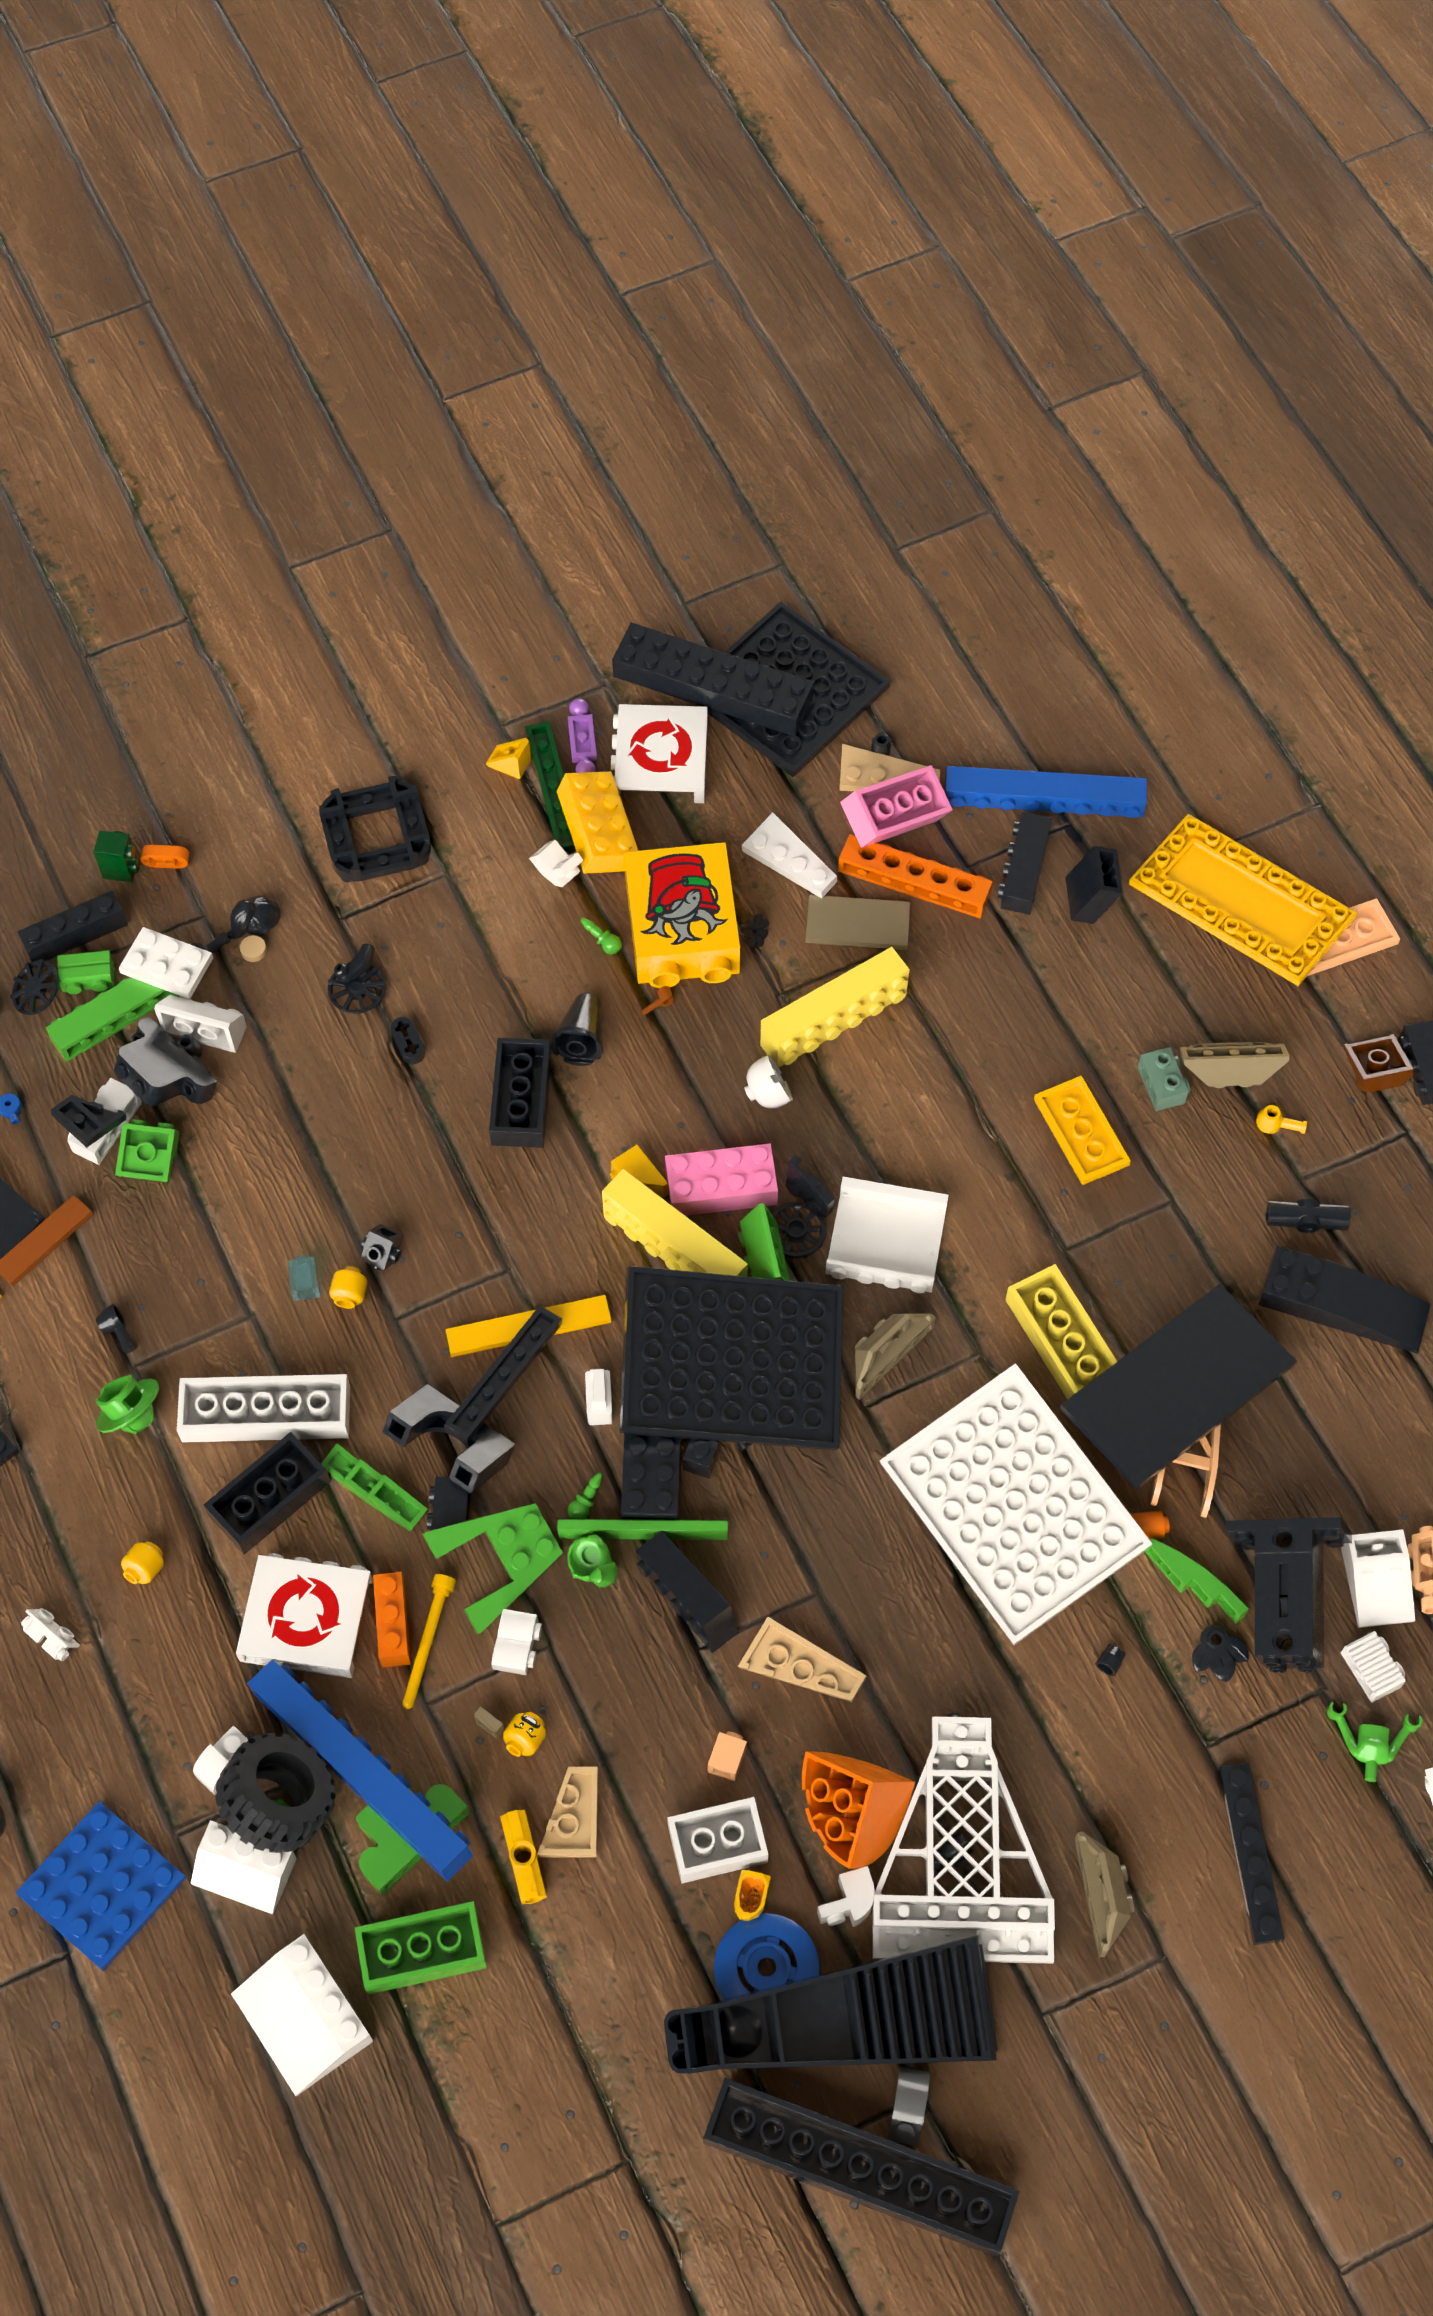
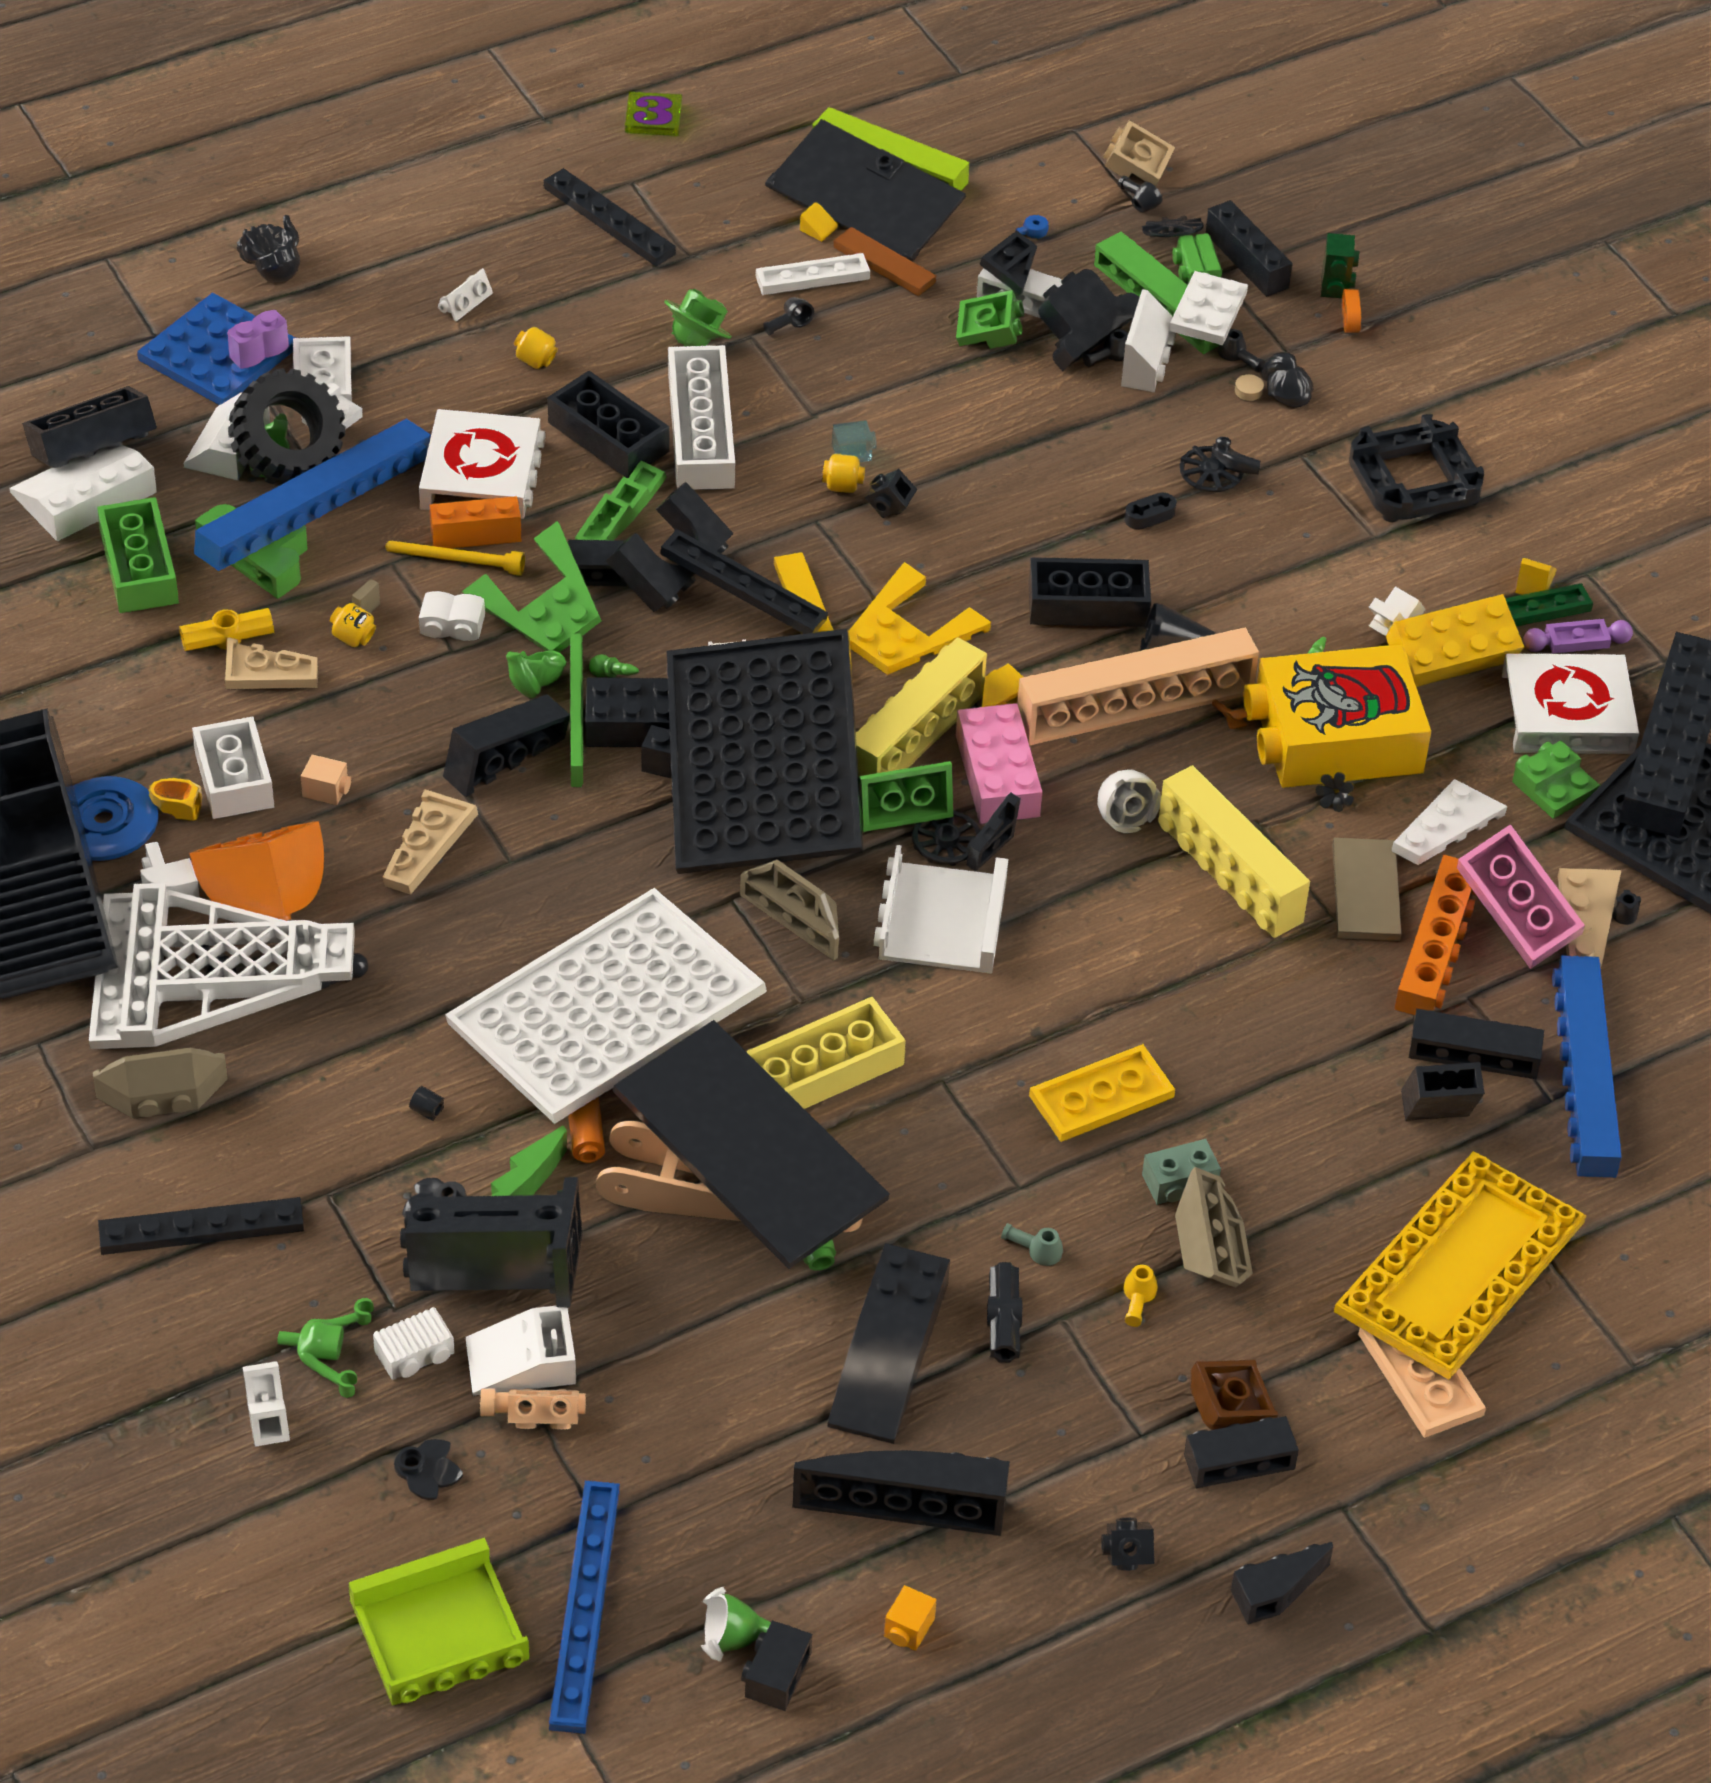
camera: 85 degrees right, 15 degrees down
(58, 1304) = (812, 274): none -> white plate
(116, 1831) = (258, 339): none -> medium lavender brick
(150, 1774) = (326, 359): none -> white plate
(231, 2006) = (89, 426): none -> black brick
(555, 1264) = (893, 642): none -> yellow wing
(640, 1061) = (1136, 685): none -> light nougat brick
(741, 776) = (1554, 778): none -> bright green plate
(1233, 1189) = (1044, 1247): none -> sand green bar

